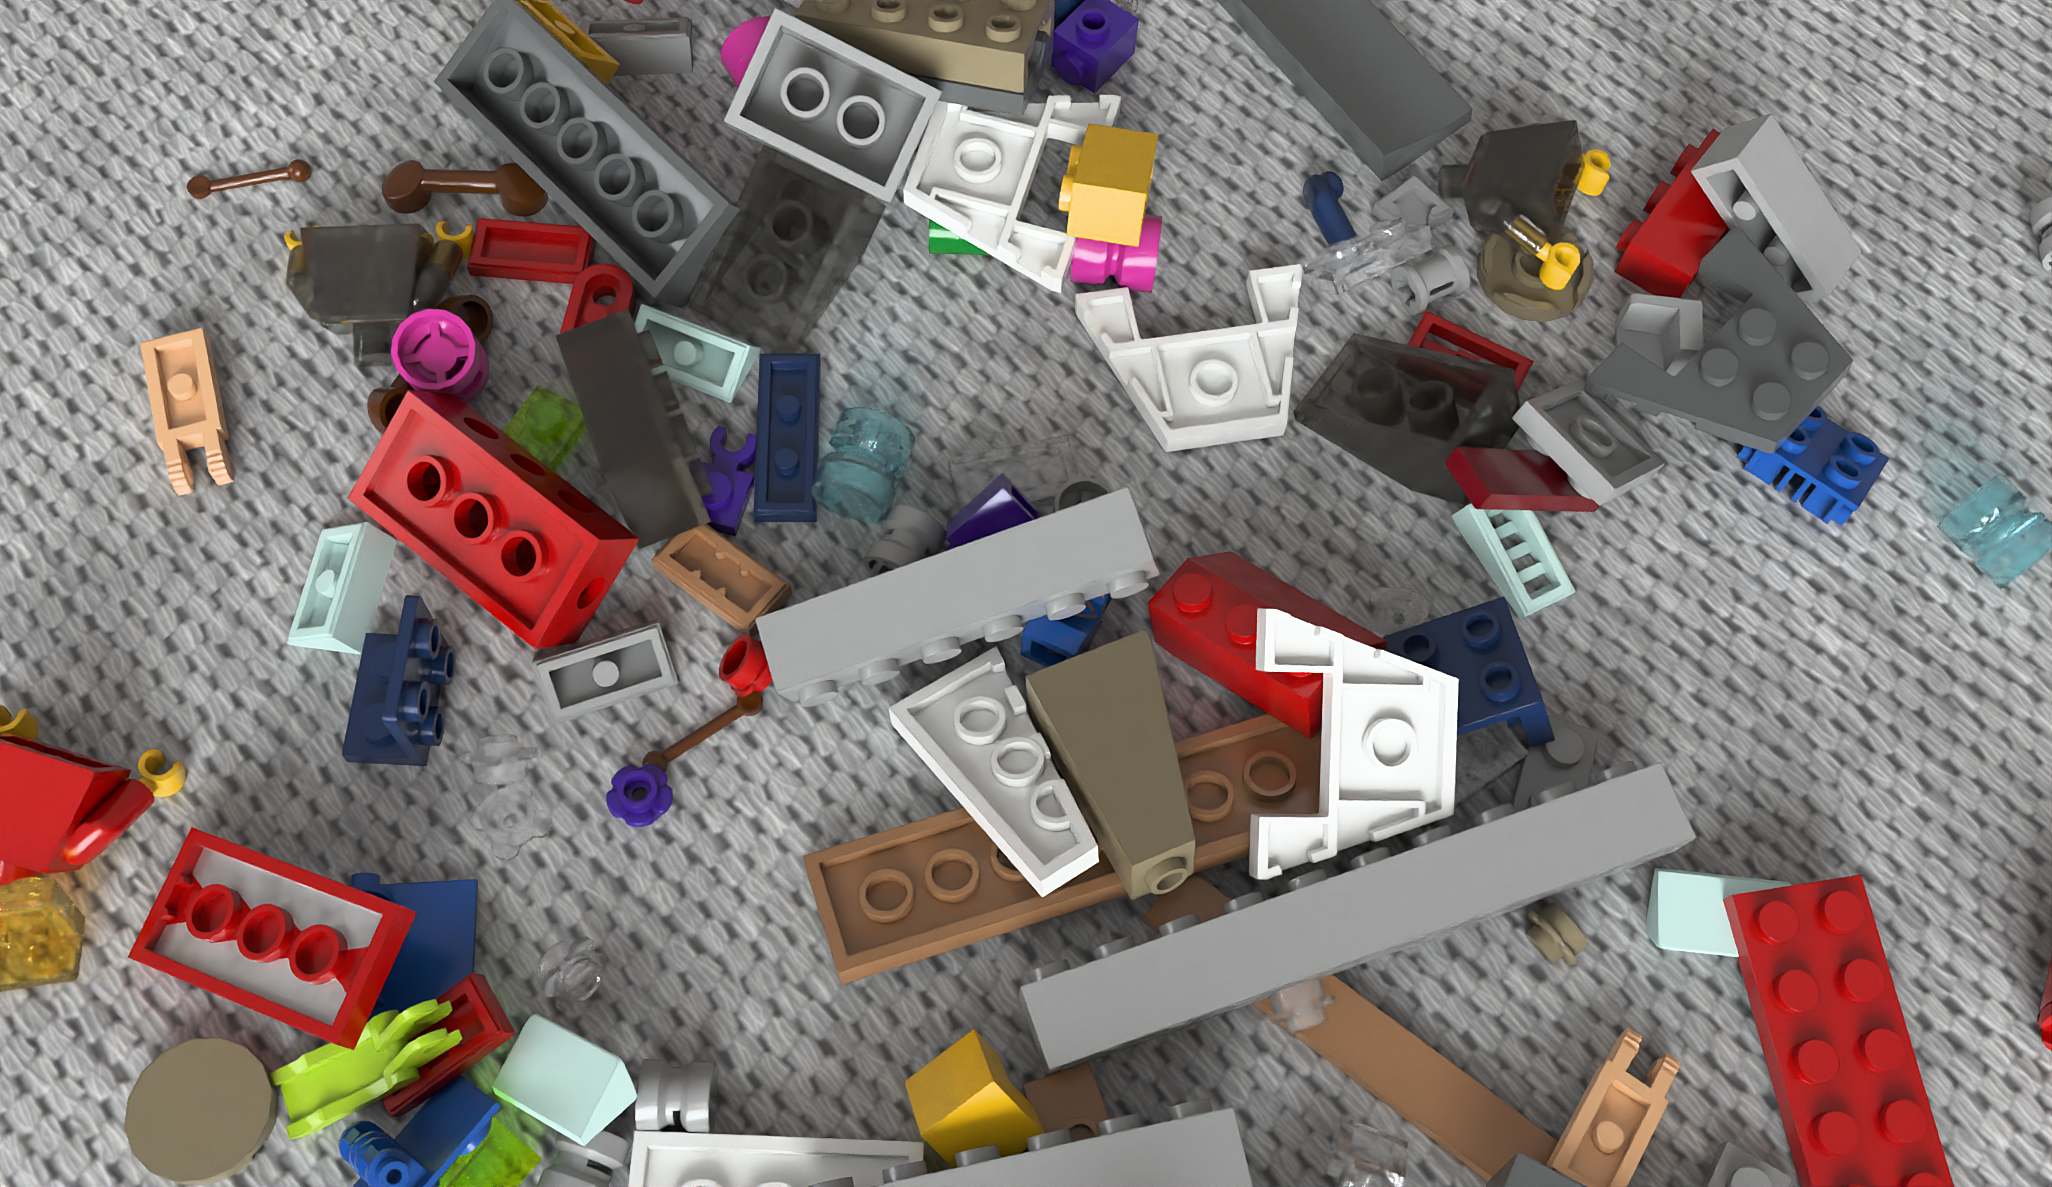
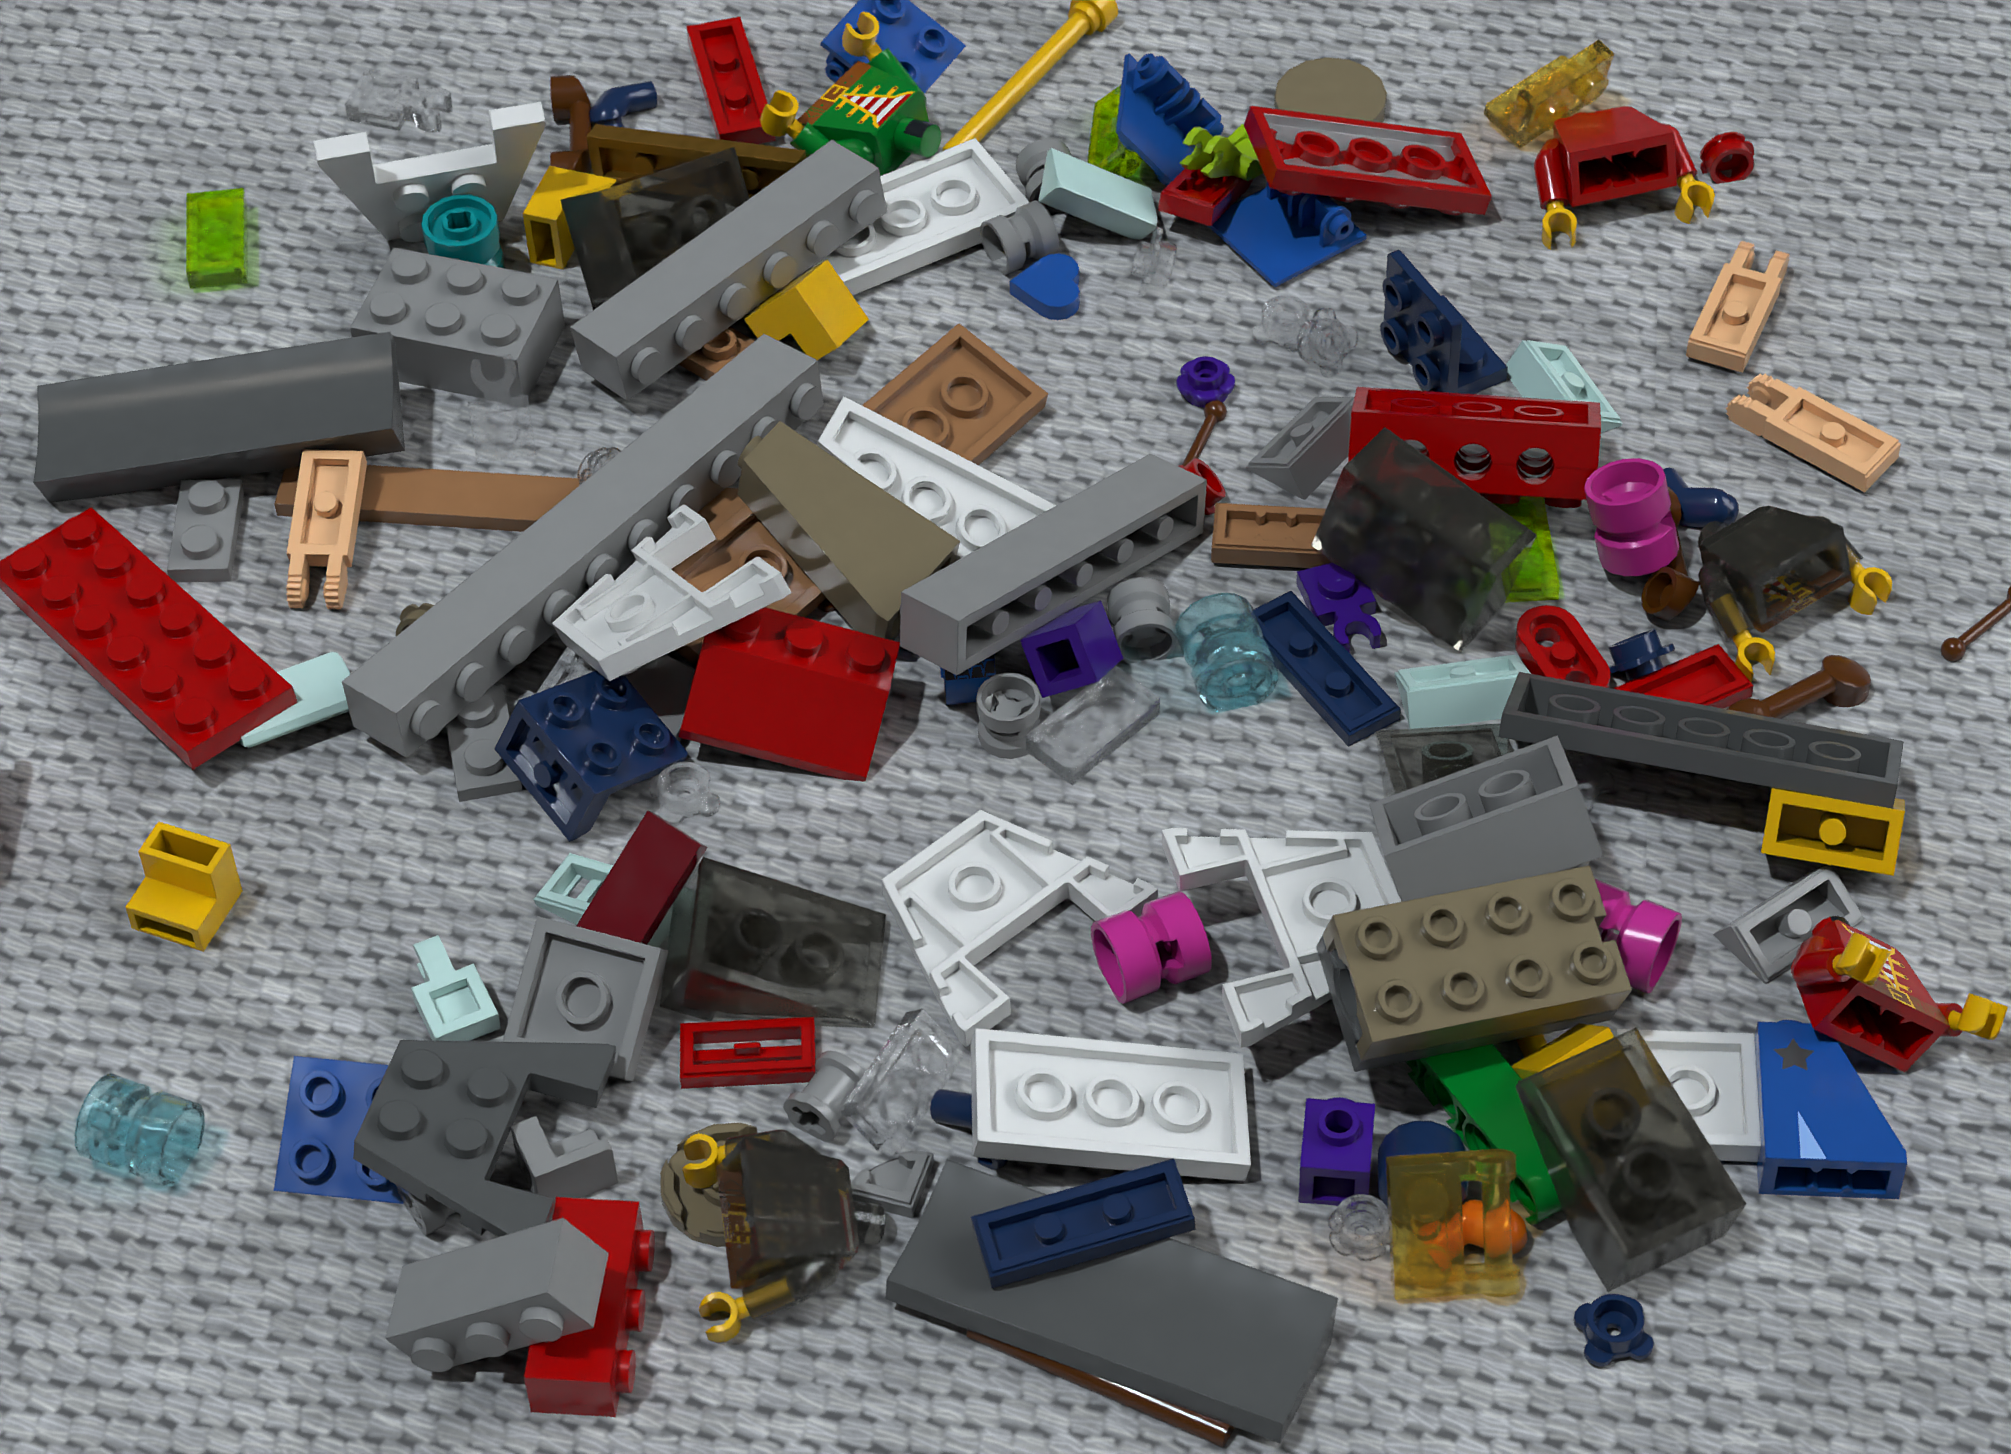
camera: 155 degrees right, 15 degrees down
(102, 575) = (1737, 310): none -> light nougat hinge
(351, 393) = (1701, 505): none -> dark blue arm
(527, 296) = (1638, 654): none -> dark blue plate
(690, 1023) = (1049, 286): none -> blue tile
(1109, 184) = (1182, 929): yellow brick -> none
(1244, 145) = (1108, 1104): none -> white plate
(1319, 53) = (1083, 1223): none -> dark blue tile
(1695, 522) = (451, 1000): none -> light aqua plate
(1891, 757) = (185, 887): none -> yellow piece

